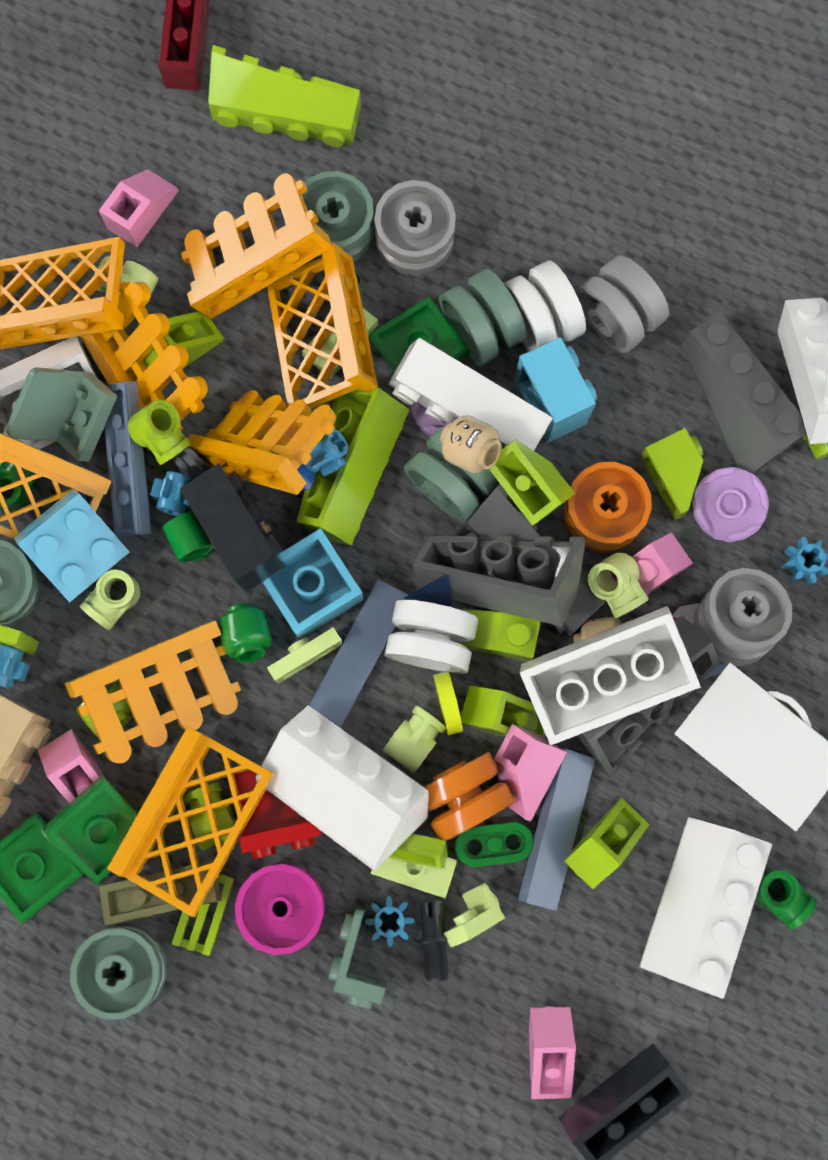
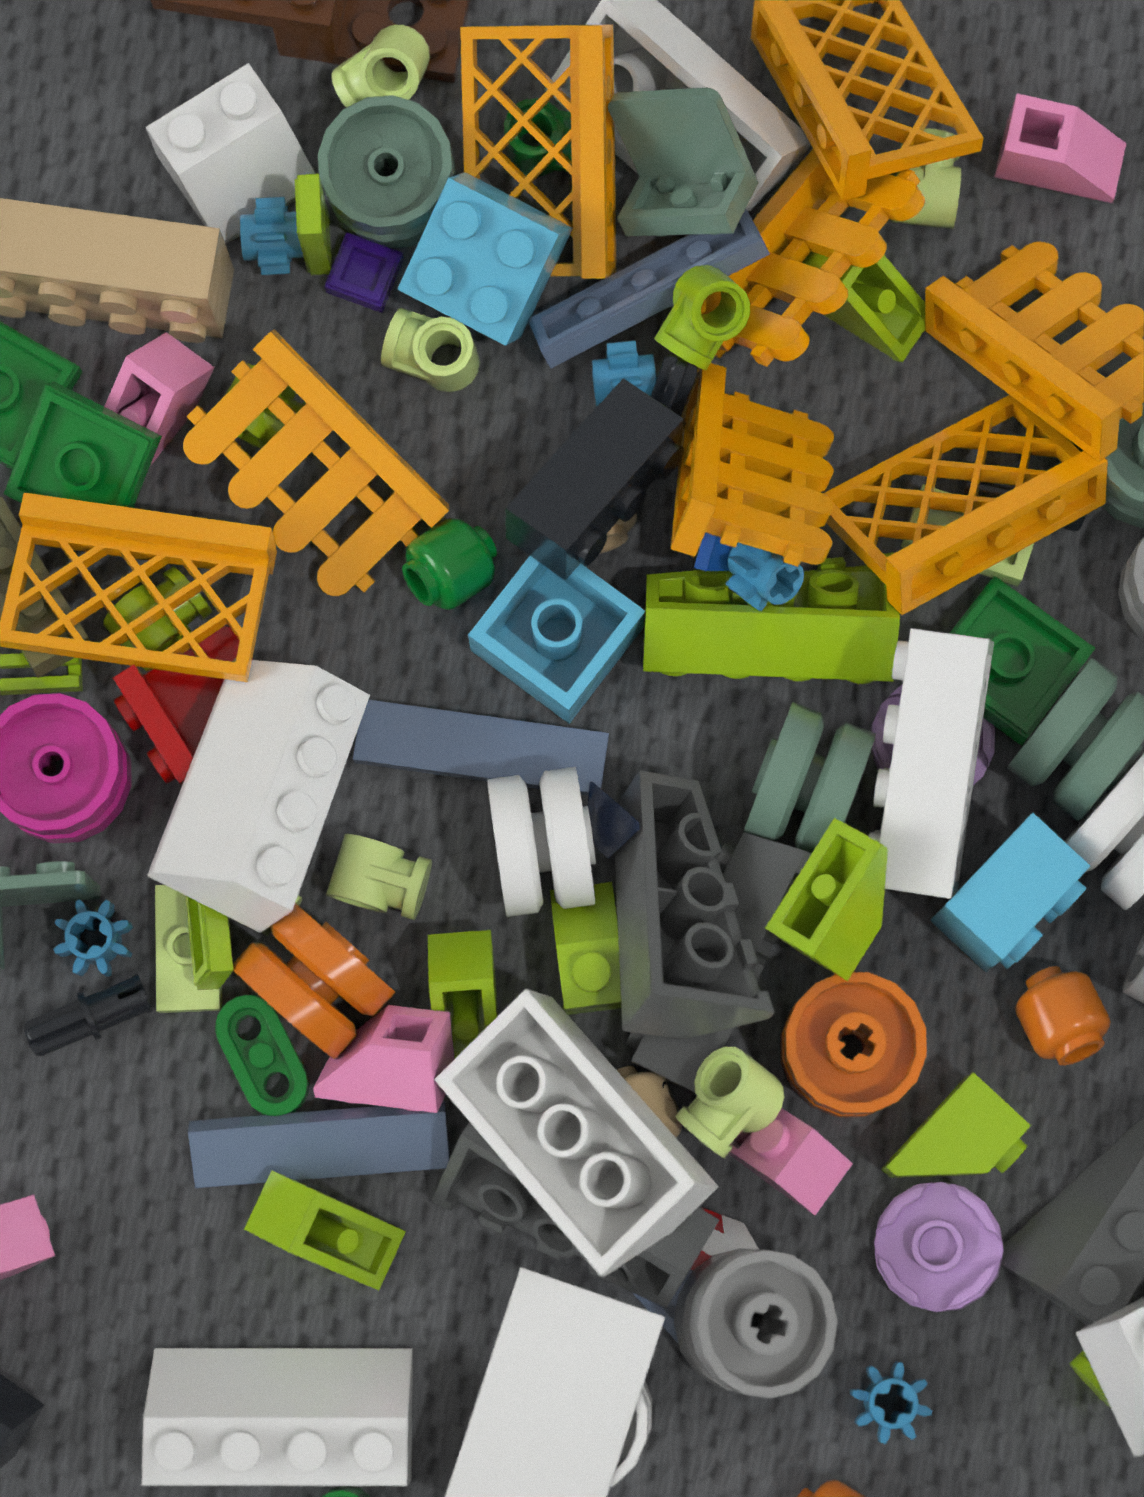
camera: 75 degrees right, 0 degrees up
(46, 621) = (364, 272): none -> dark purple tile
(188, 538) = (555, 418): green piece -> none
(304, 654) = (449, 663): yellowish green plate -> none
(448, 703) = (450, 905): neon yellow piece -> none
(470, 444) = (850, 781): tan head -> none
(482, 914) = (145, 1073): yellowish green bracket -> none
(627, 390) = (1062, 1015): none -> orange head

